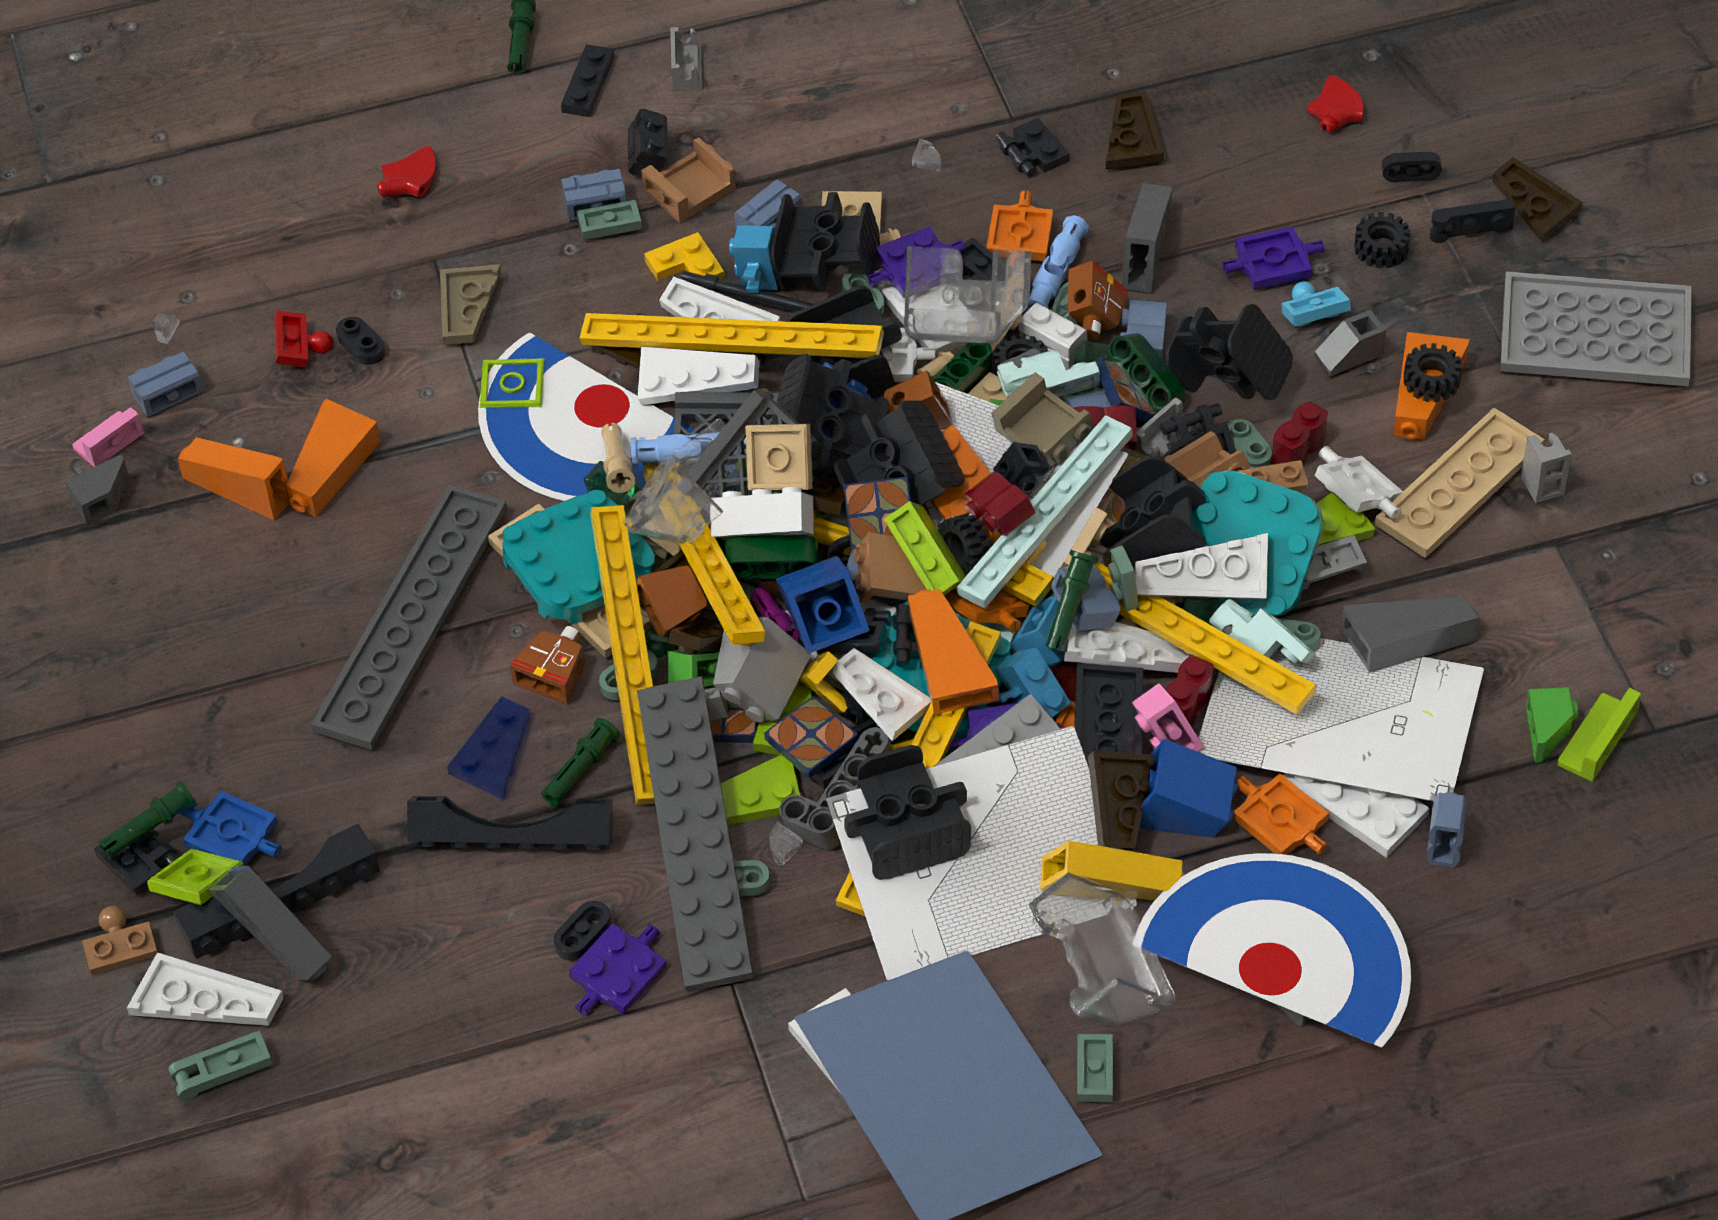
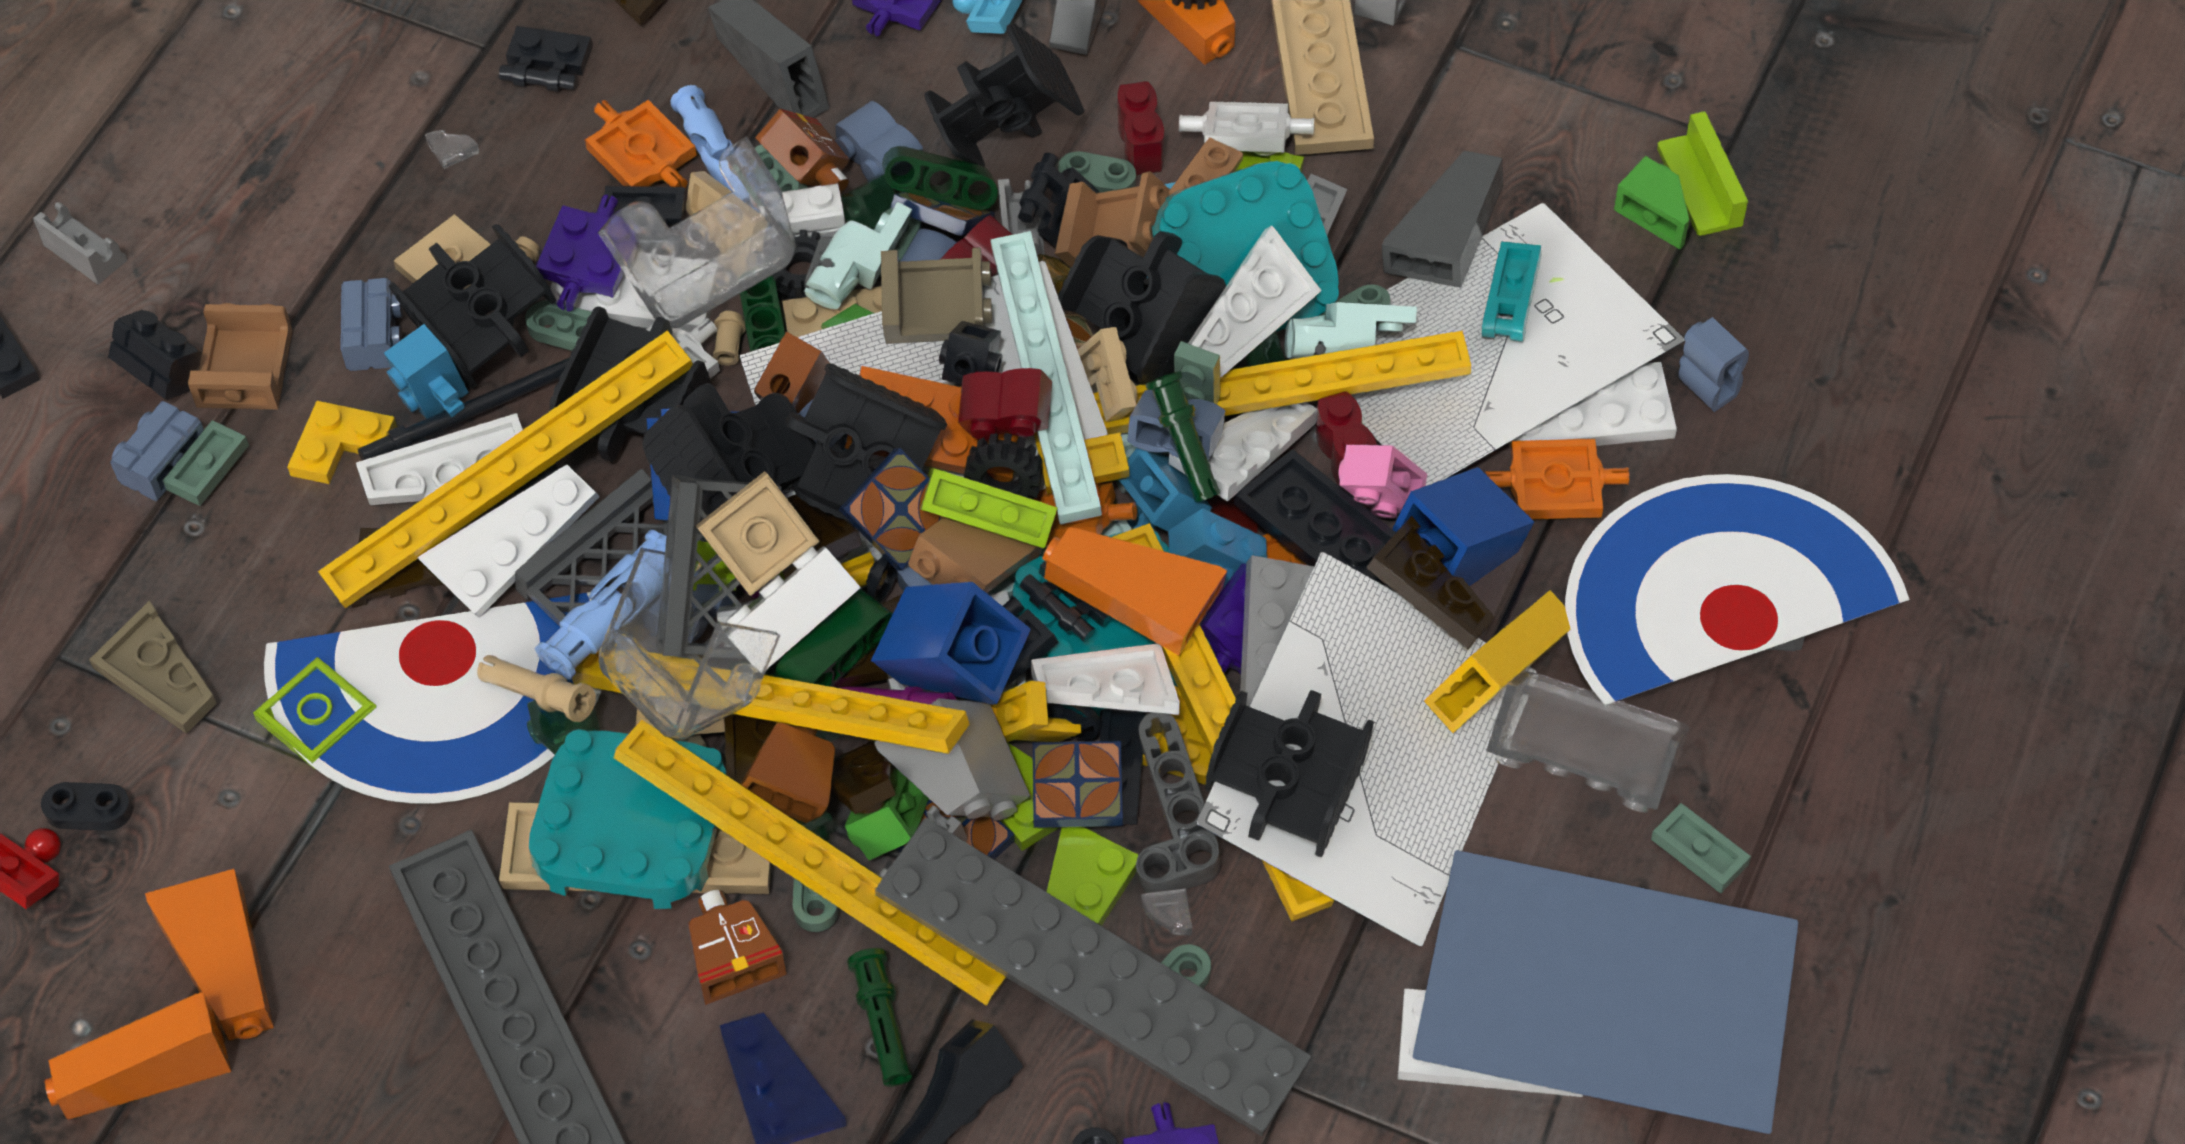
camera: 50 degrees left, 5 degrees up
(1386, 694) = (1511, 290): none -> teal plate

